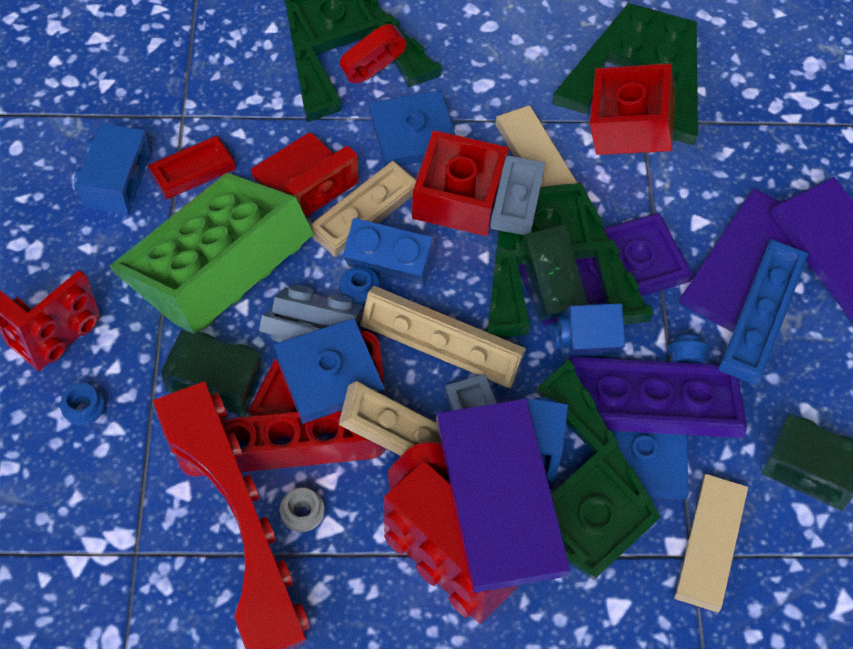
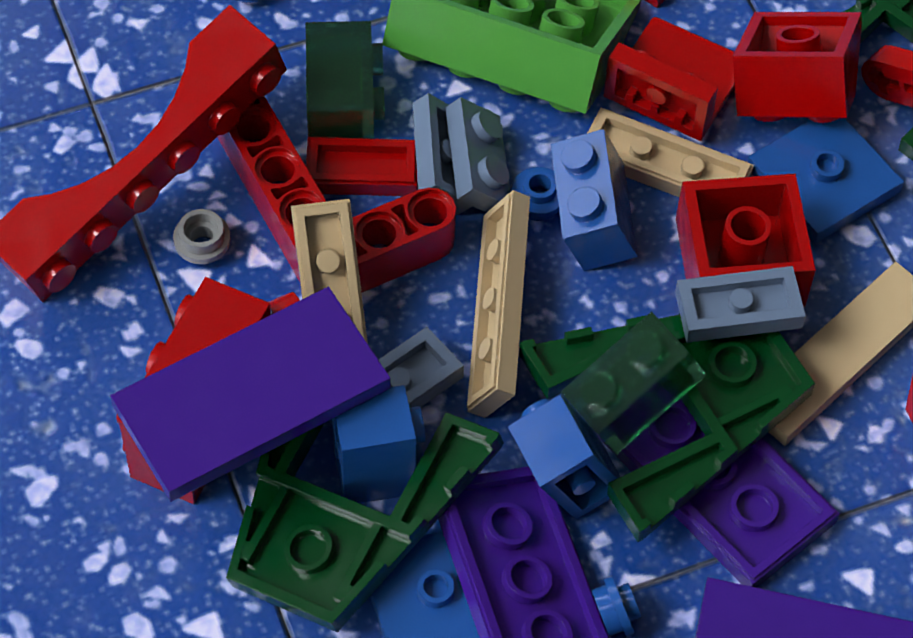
camera: 70 degrees right, 0 degrees up
(323, 365) = (383, 176): blue plate -> none
(337, 101) = (798, 65): none -> red slope

